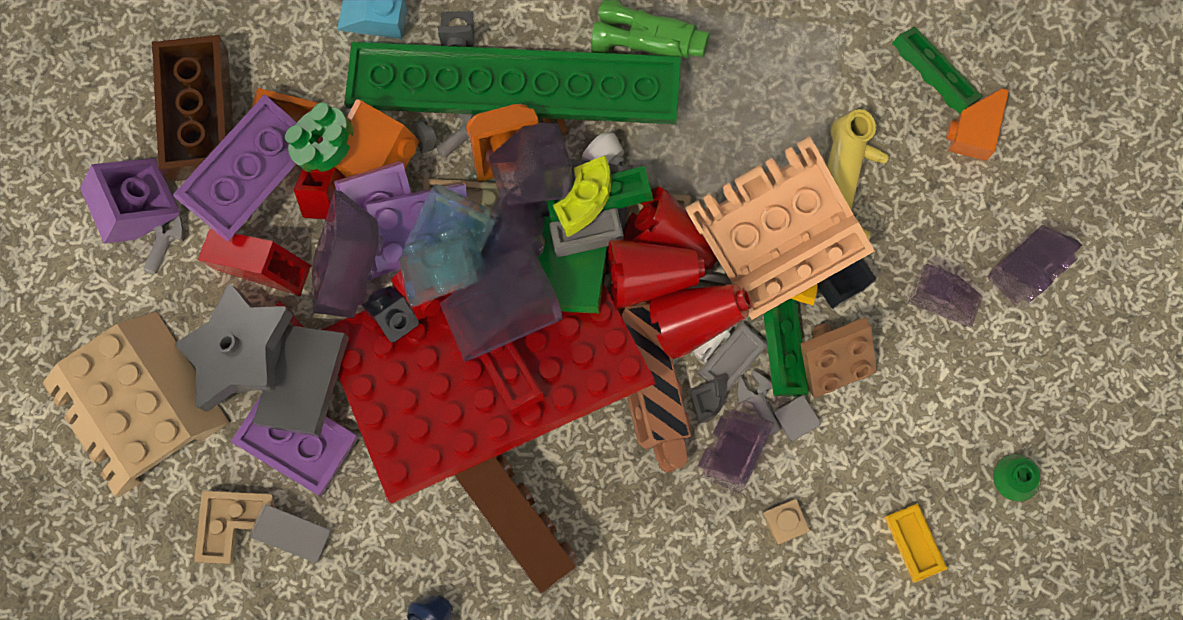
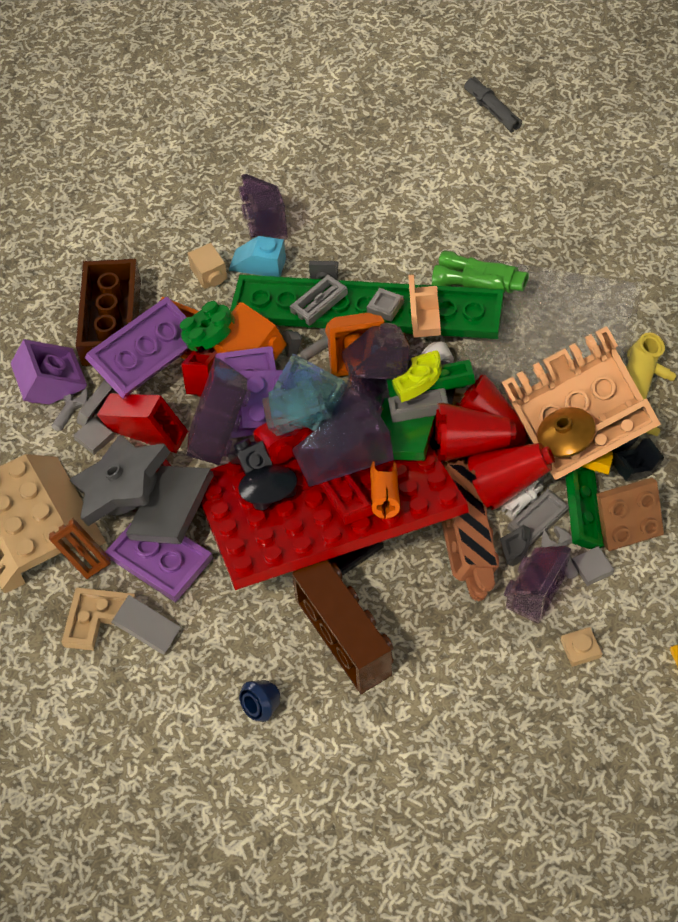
camera: 10 degrees right, 20 degrees down
(190, 242) = (94, 403): none -> light grey tile
(197, 280) = (93, 436): none -> light grey tile
(204, 443) = (65, 531): none -> dark orange tile
(310, 30) = (207, 266): none -> tan brick
(415, 356) = (268, 486): none -> black dish
(446, 106) = (322, 301): none -> light grey tile
(536, 85) = (385, 304): none -> light grey tile
(555, 371) = (384, 492): none -> orange piece
(585, 93) = (424, 310): none -> light nougat panel
(774, 274) = (567, 431): none -> pearl gold dish

